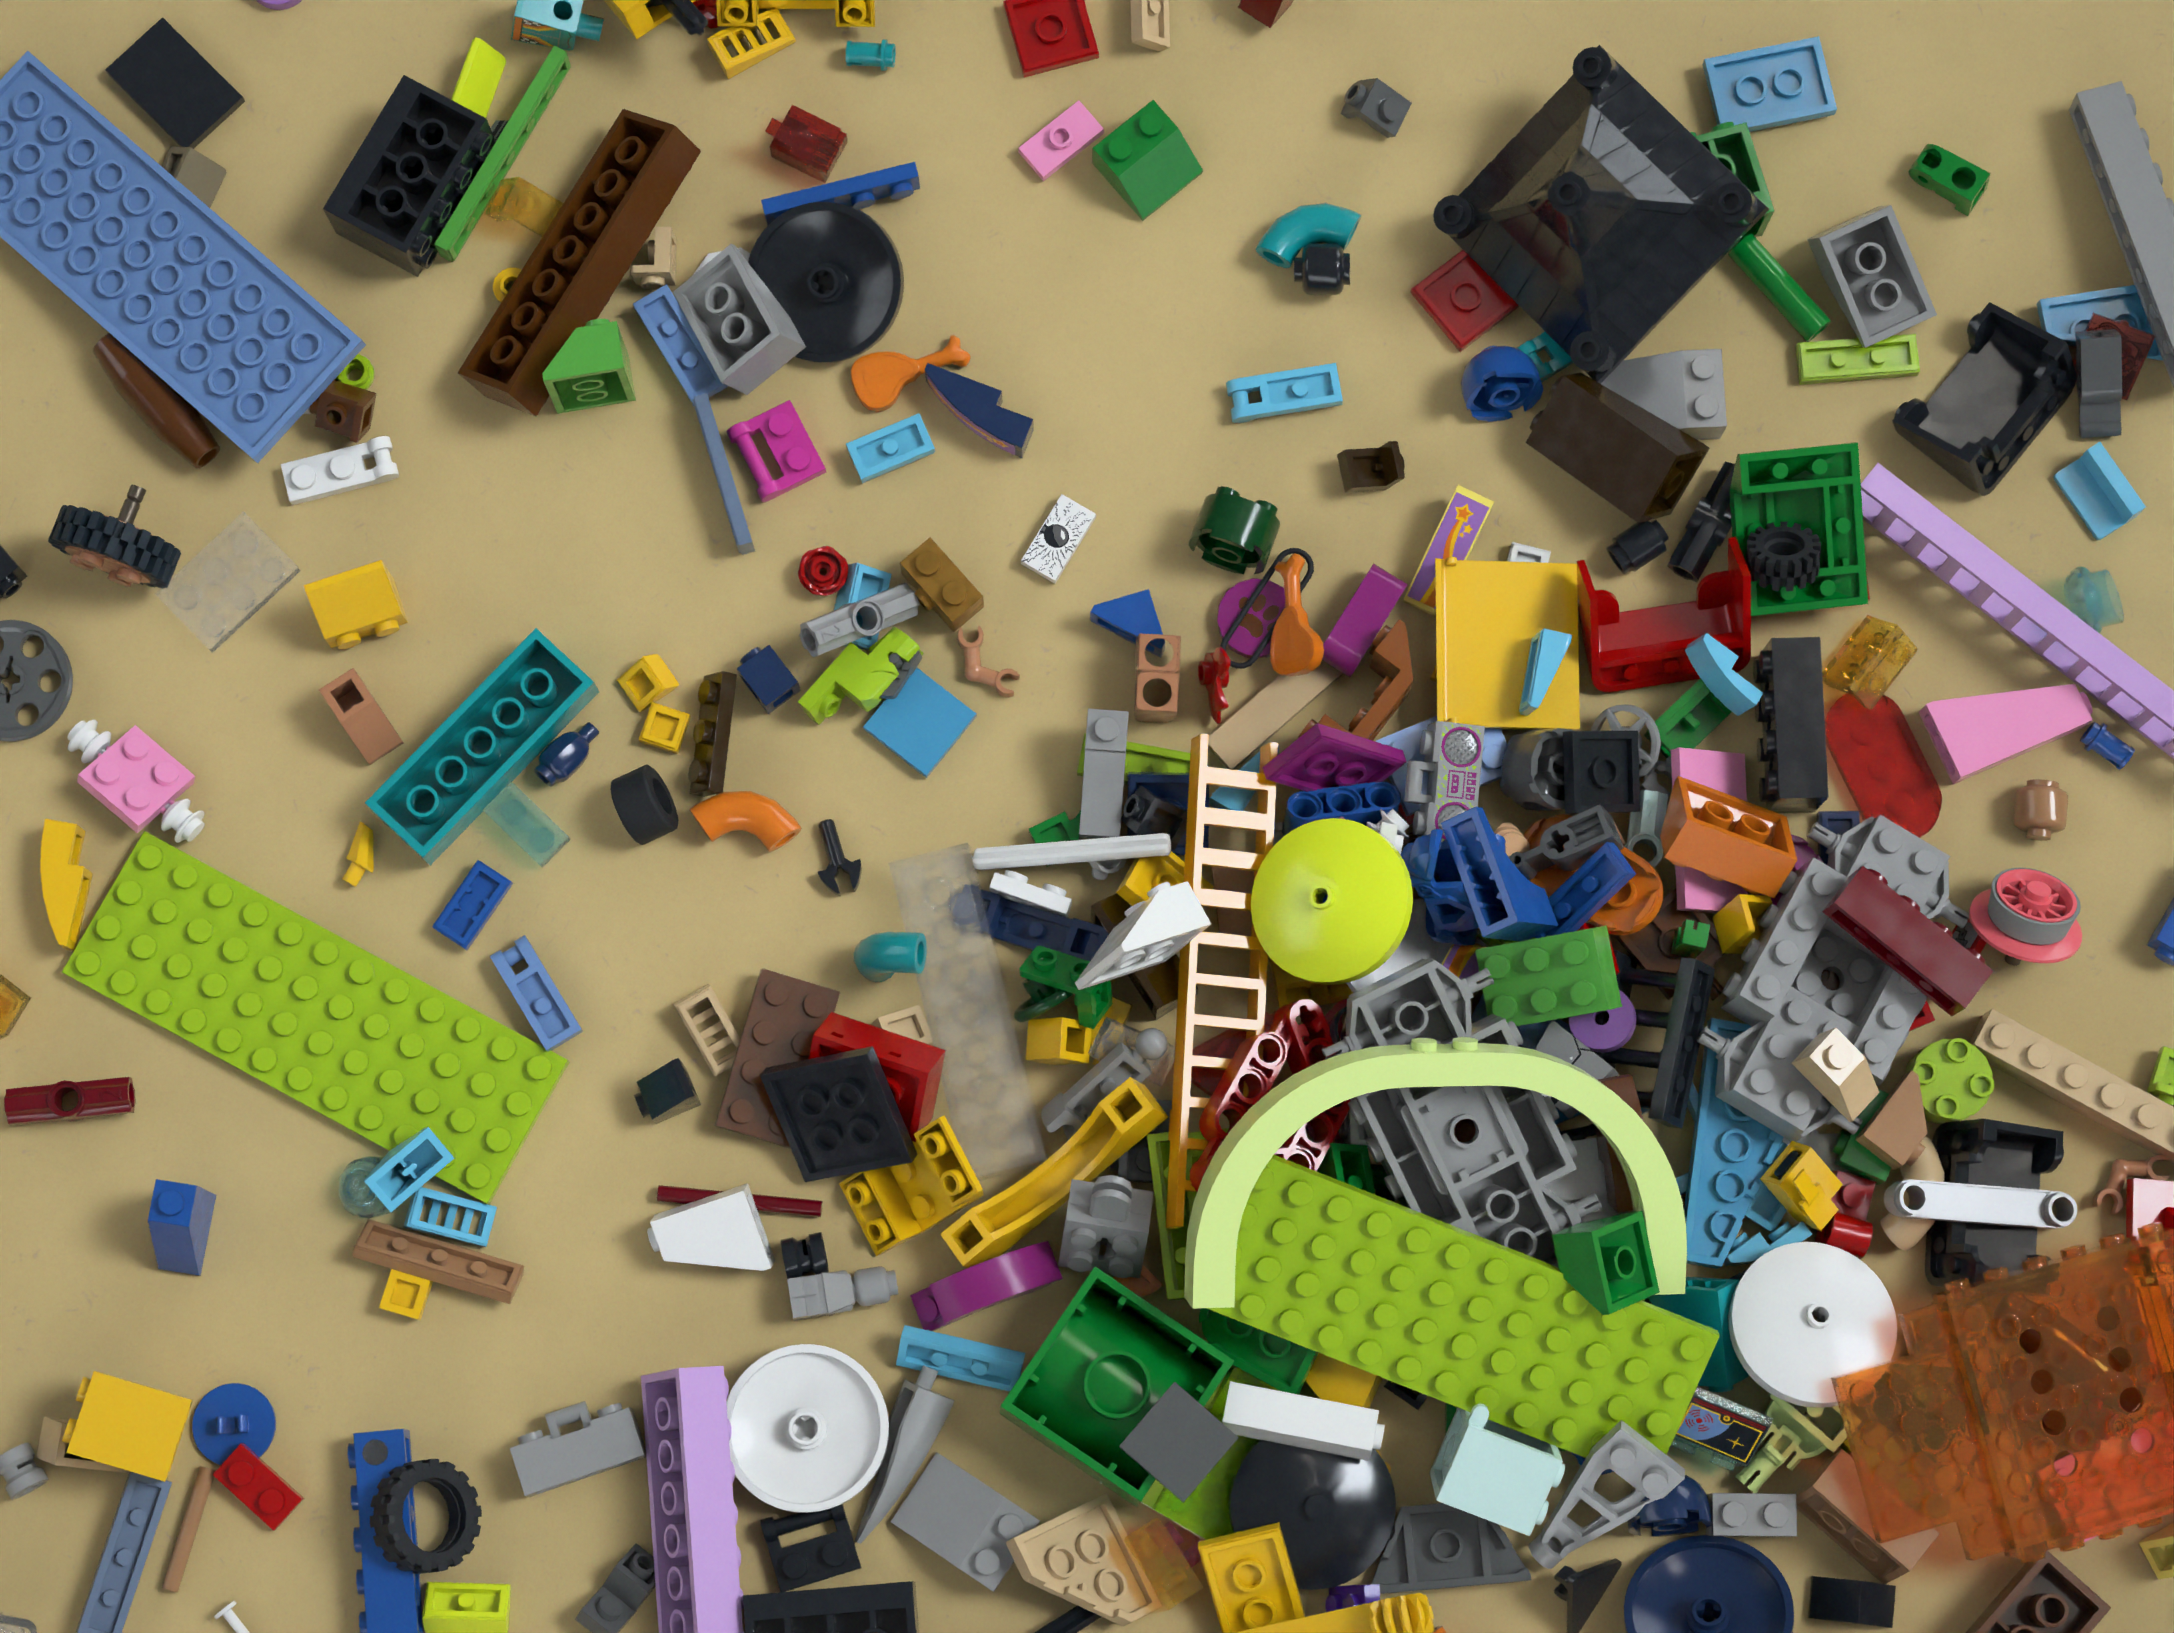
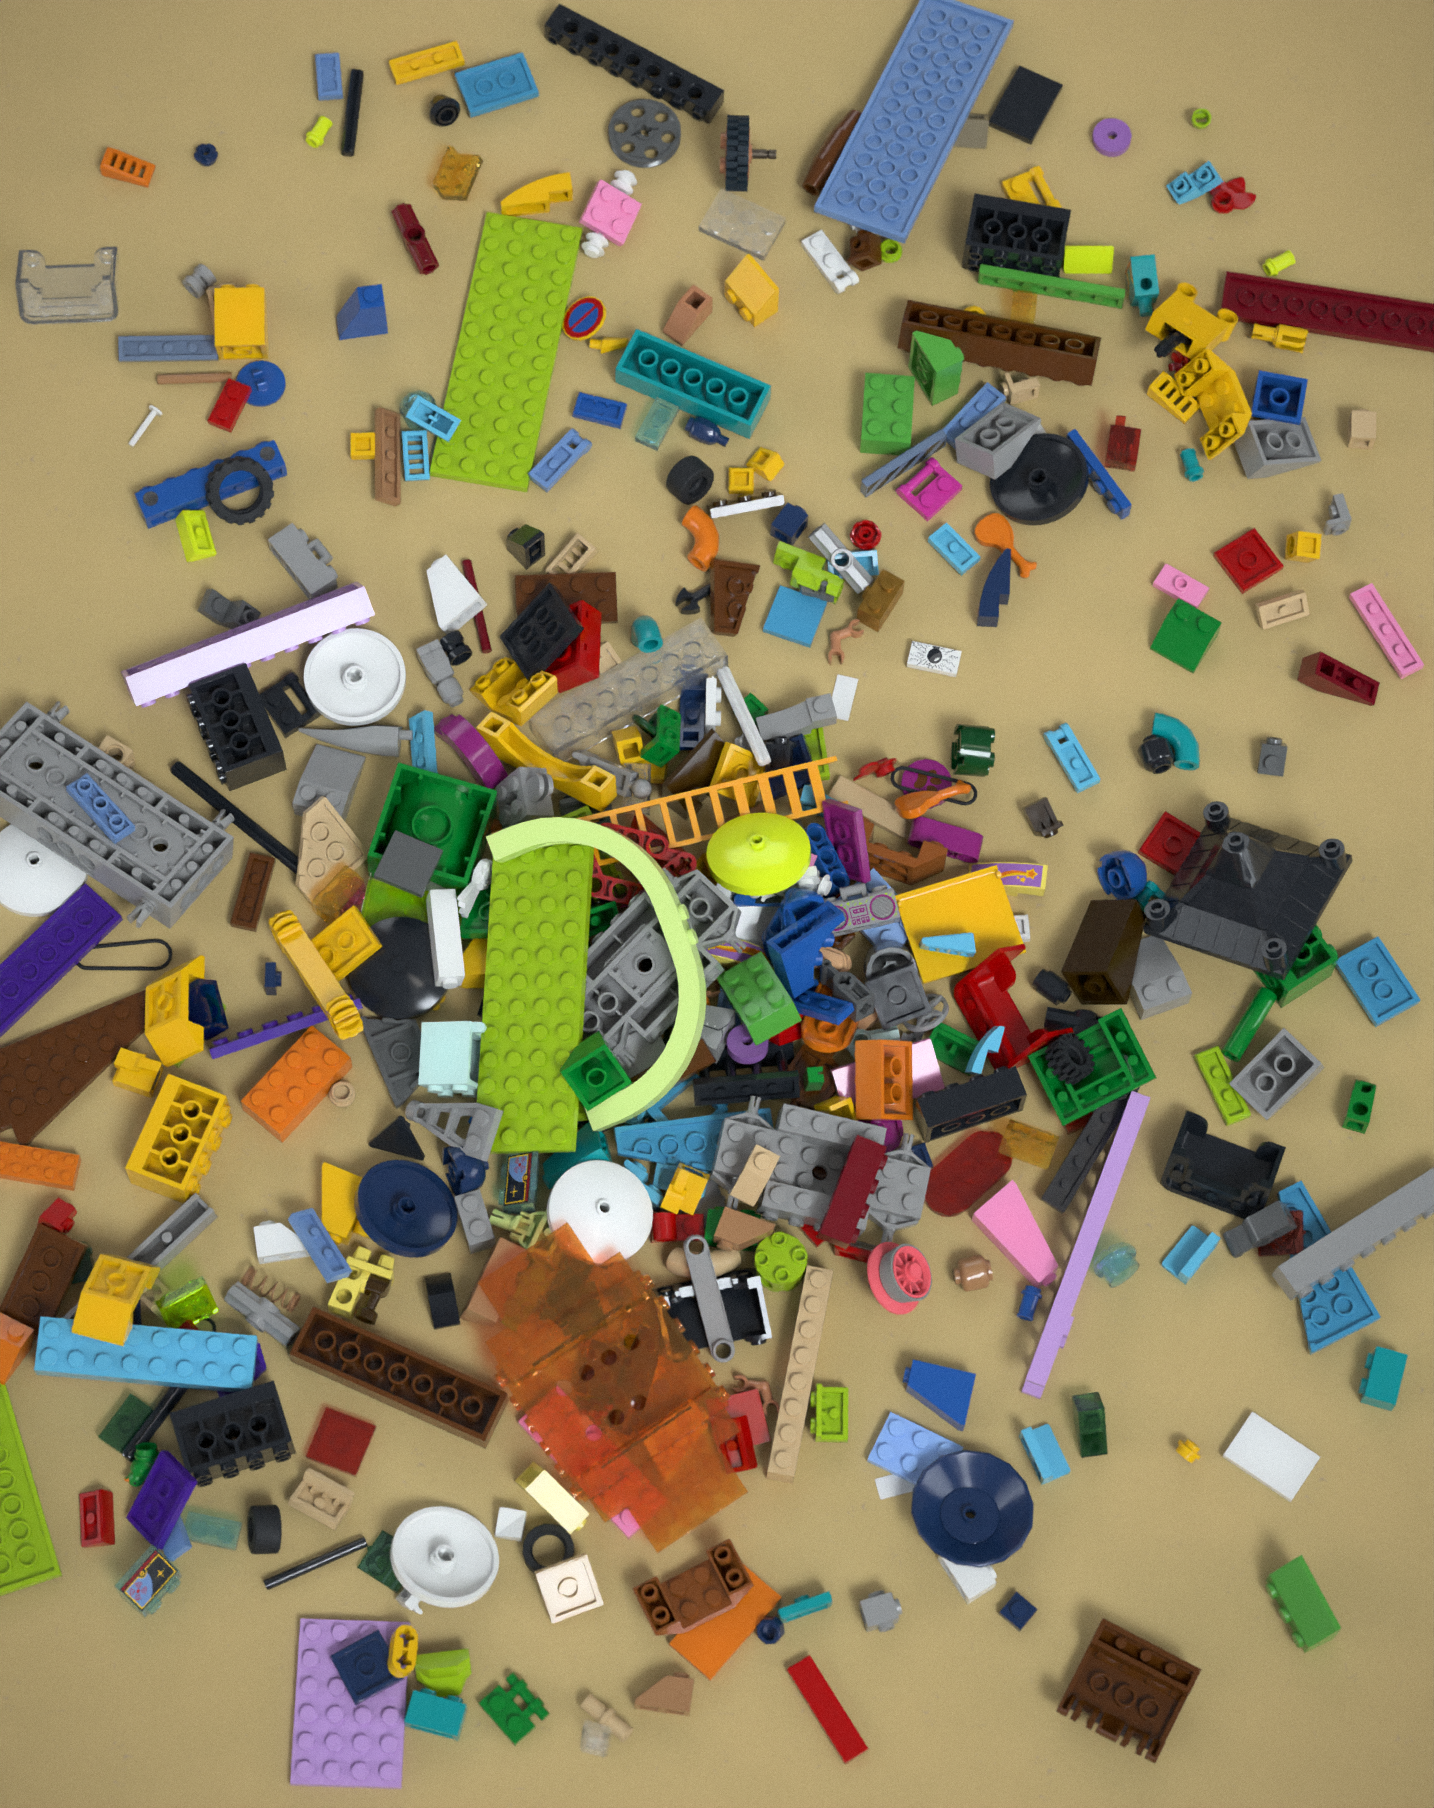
camera: 70 degrees right, 10 degrees down
(307, 878) = (584, 318): none -> piece
(330, 144) = (1020, 189): none -> yellow plate
(634, 470) = (887, 414): none -> bright green brick
(851, 807) = (729, 593): none -> reddish brown wing
(1071, 692) = (844, 695): none -> white sticker
(1130, 617) = (900, 713): blue slope -> none
(1148, 934) = (701, 757): white slope -> none
(1167, 673) = (865, 744): nougat piece -> none
(1224, 1336) = (480, 880): none -> white piece
(1919, 594) = (1084, 1153): none -> black plate

